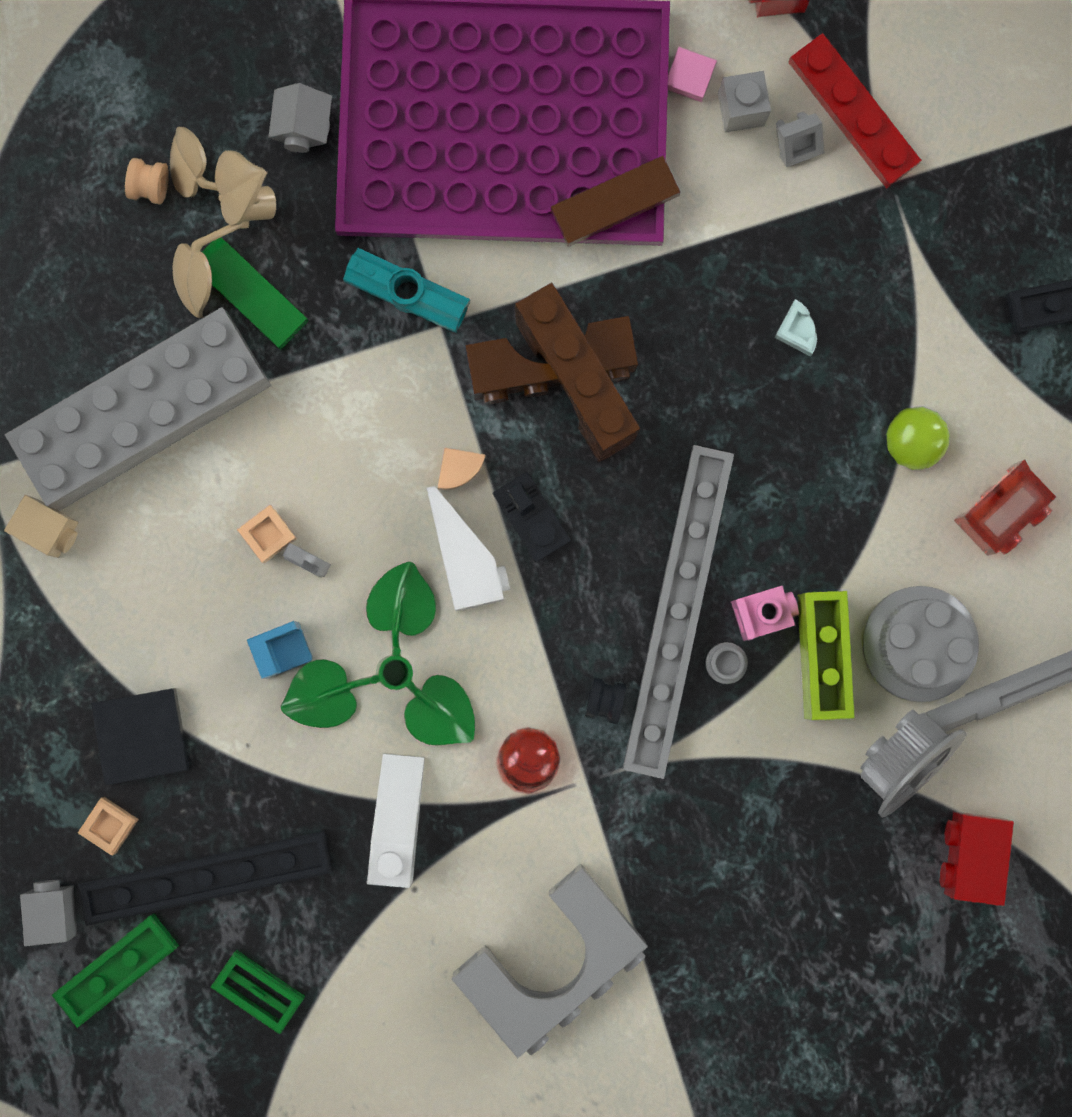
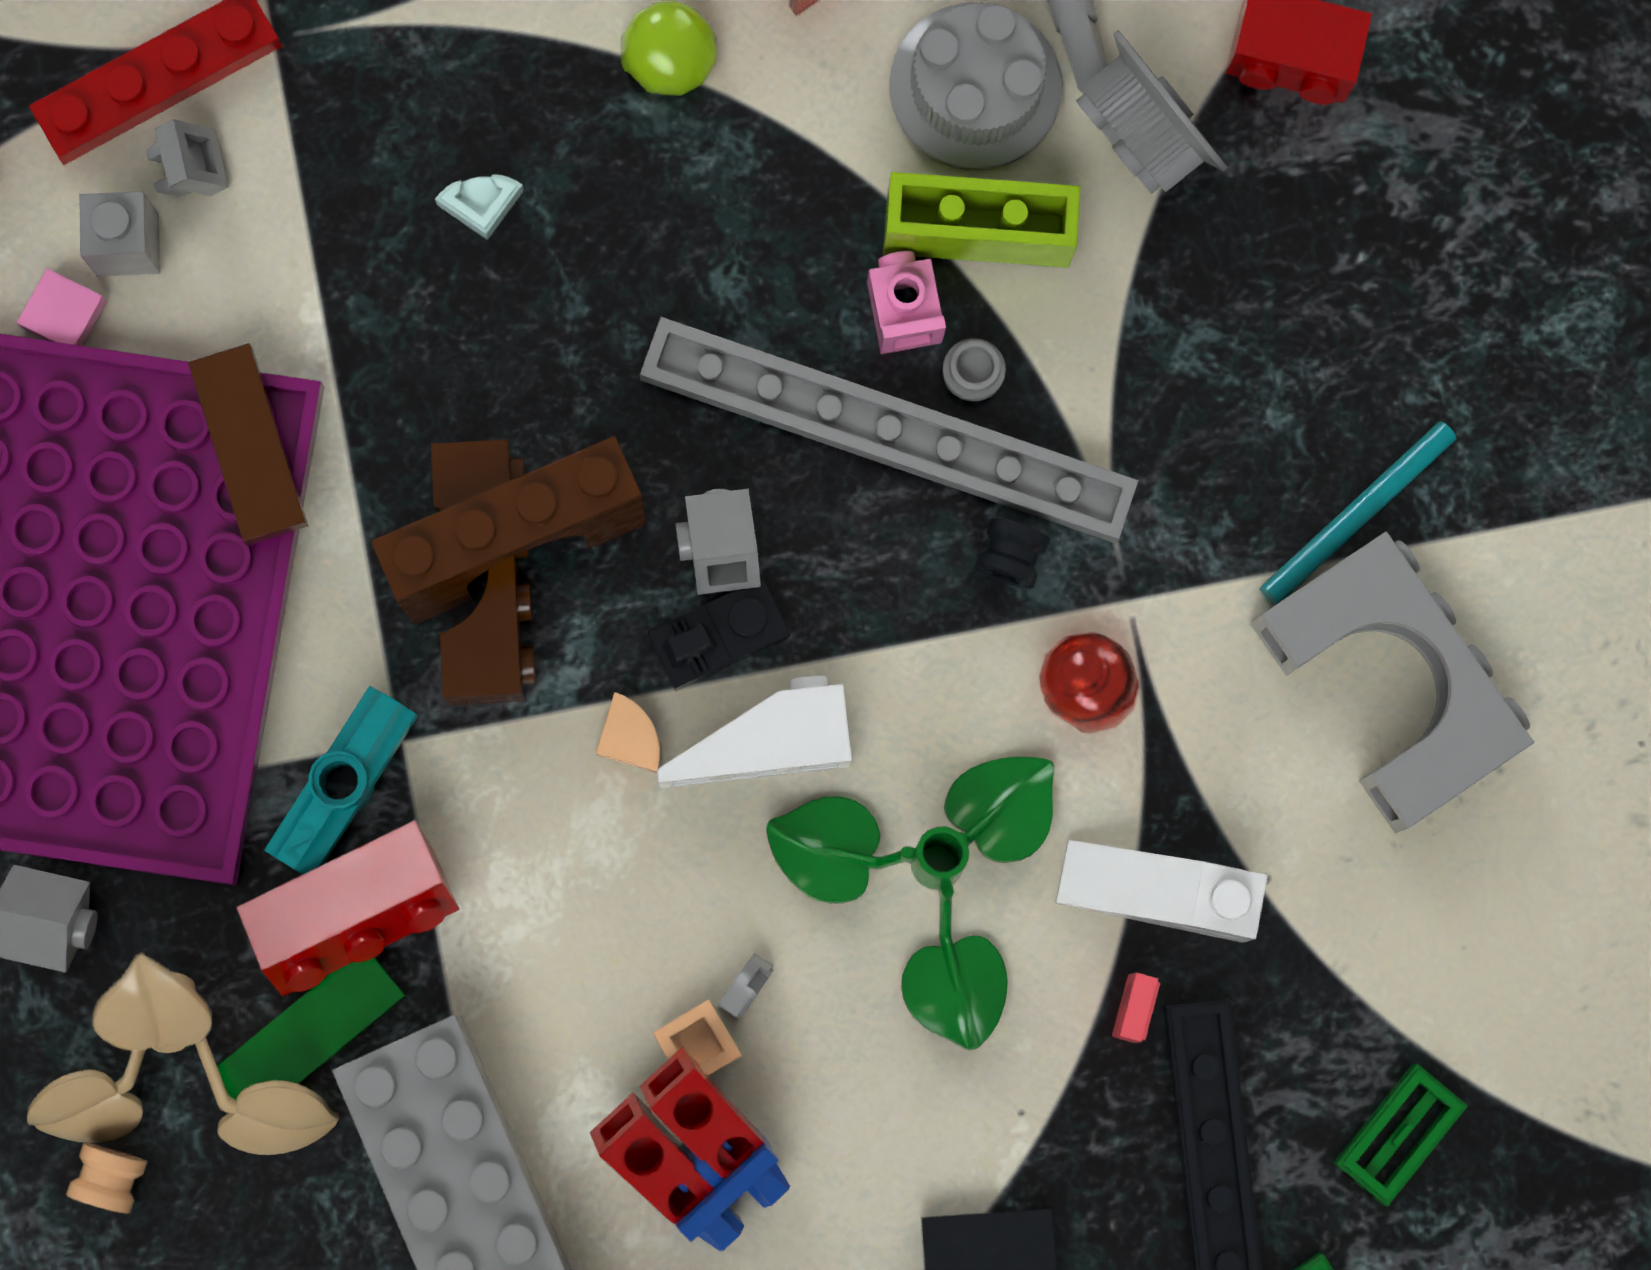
camera: 90 degrees left, 5 degrees down
(196, 536) = (704, 1174): none -> red hips
(279, 650) = (880, 1042): dark azure panel -> none
(318, 811) = (1136, 1008): none -> coral tile
(326, 305) = (347, 909): none -> brick
(590, 509) = (720, 541): none -> light grey brick
(662, 928) = (1358, 513): none -> teal bar

